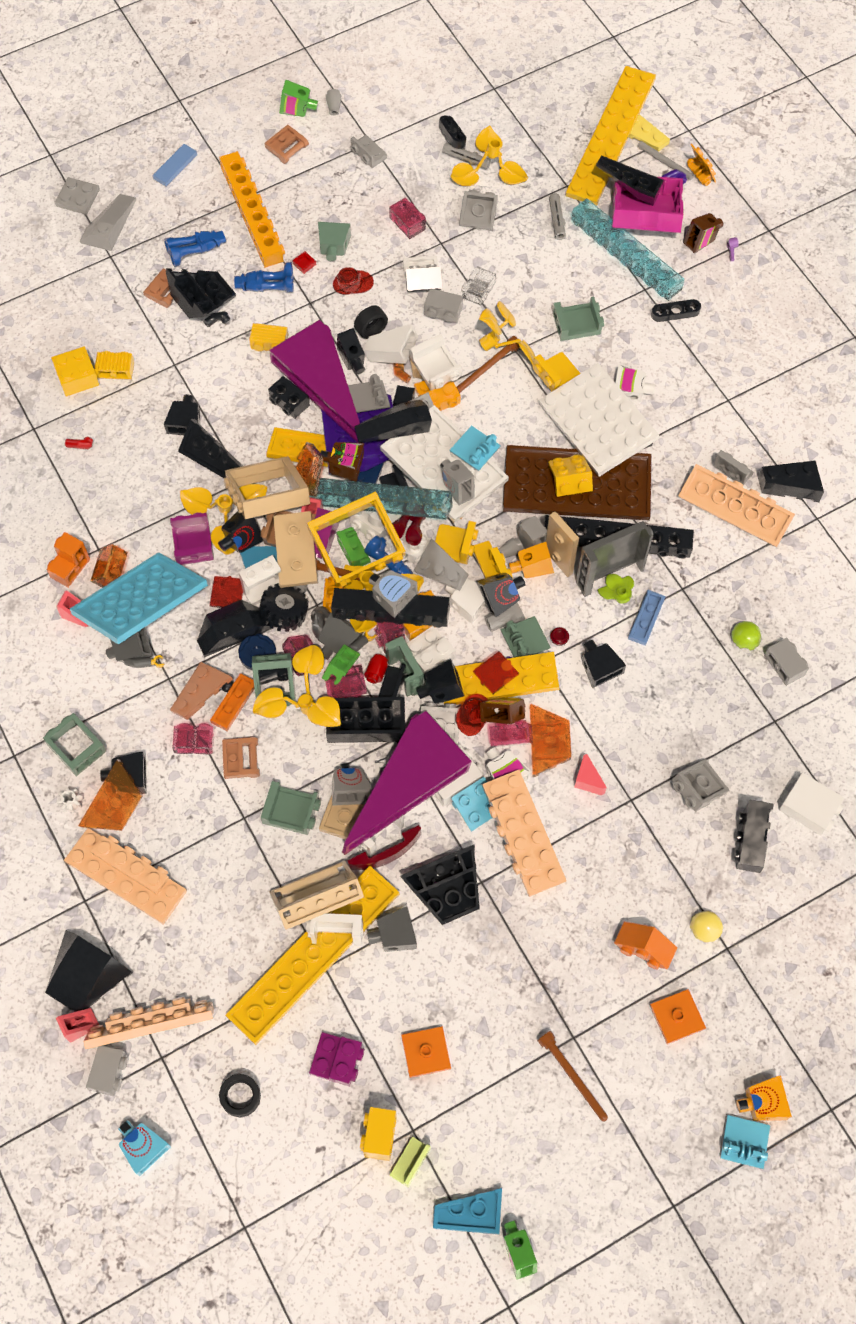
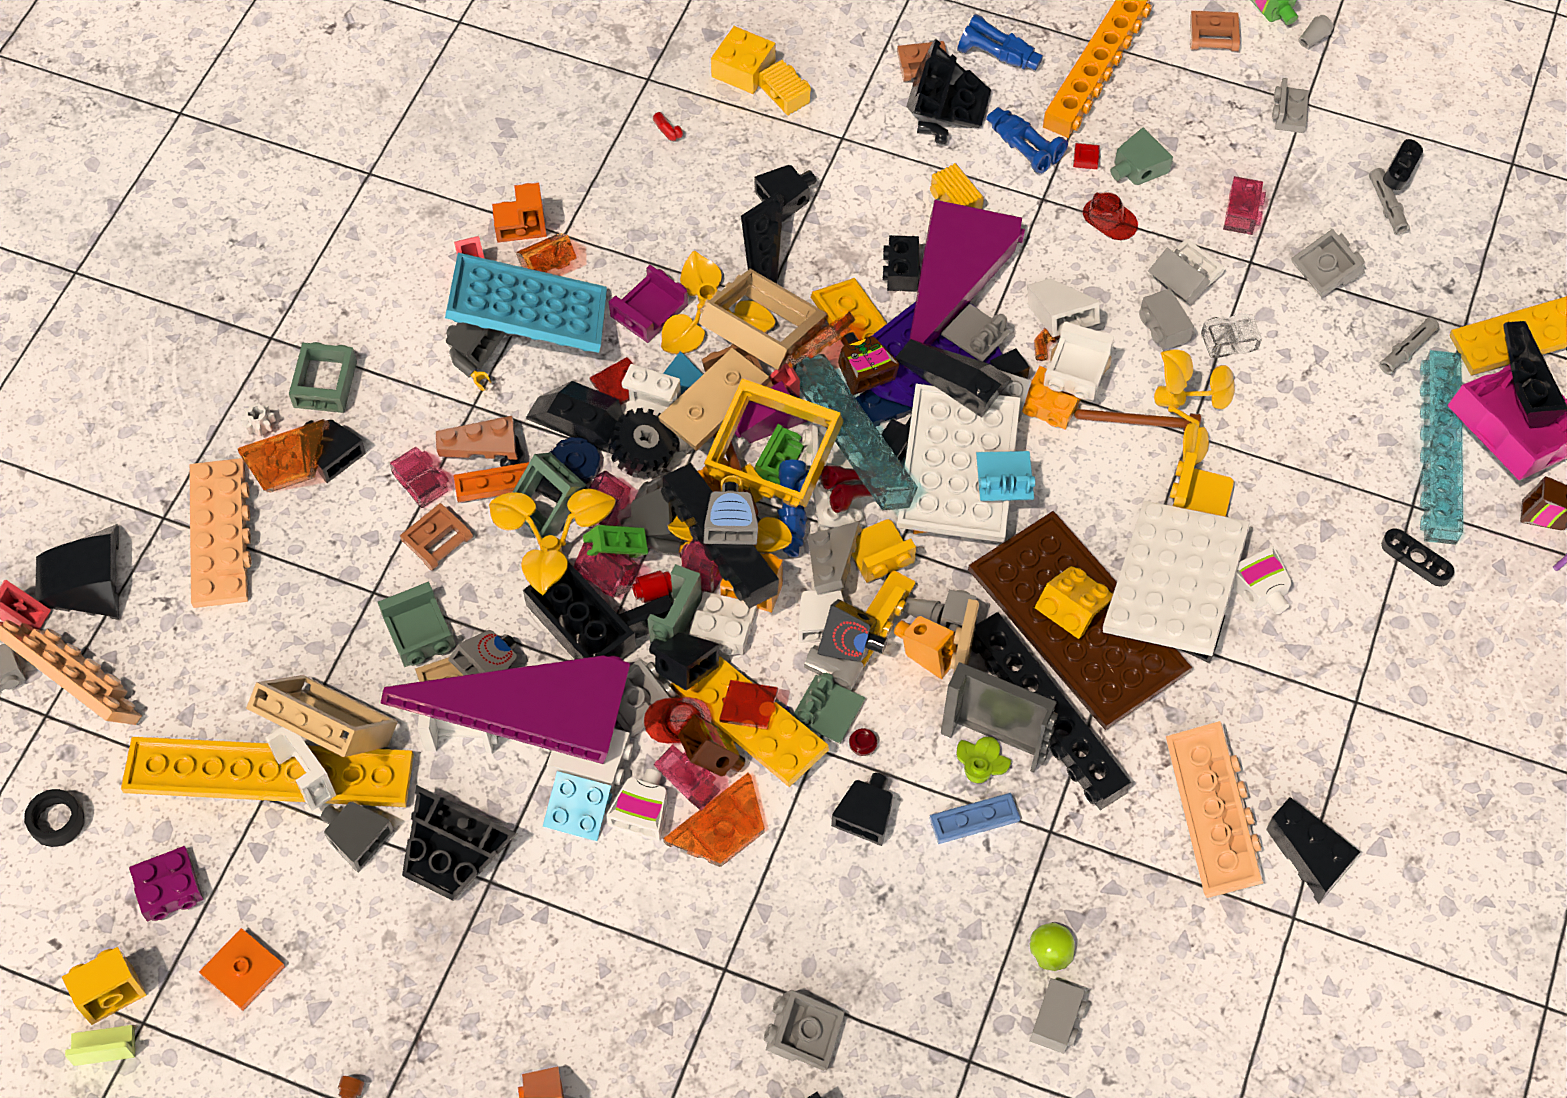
camera: 50 degrees right, 5 degrees down
(240, 533) = (688, 338): black torso -> none
(351, 350) = (1015, 275): black torso -> none
(362, 862) = (475, 768): dark red slope -> none
(374, 314) = (1070, 255): black tyre -> none
(458, 480) = (944, 477): light grey torso -> none
(491, 144) = (1430, 208): yellow plant -> none
(523, 833) = (577, 878): light nougat plate -> none
(578, 320) = (1292, 465): sand green panel -> none
(589, 779) = (709, 898): coral slope -> none
(732, 467) = (1264, 769): light grey bracket -> none

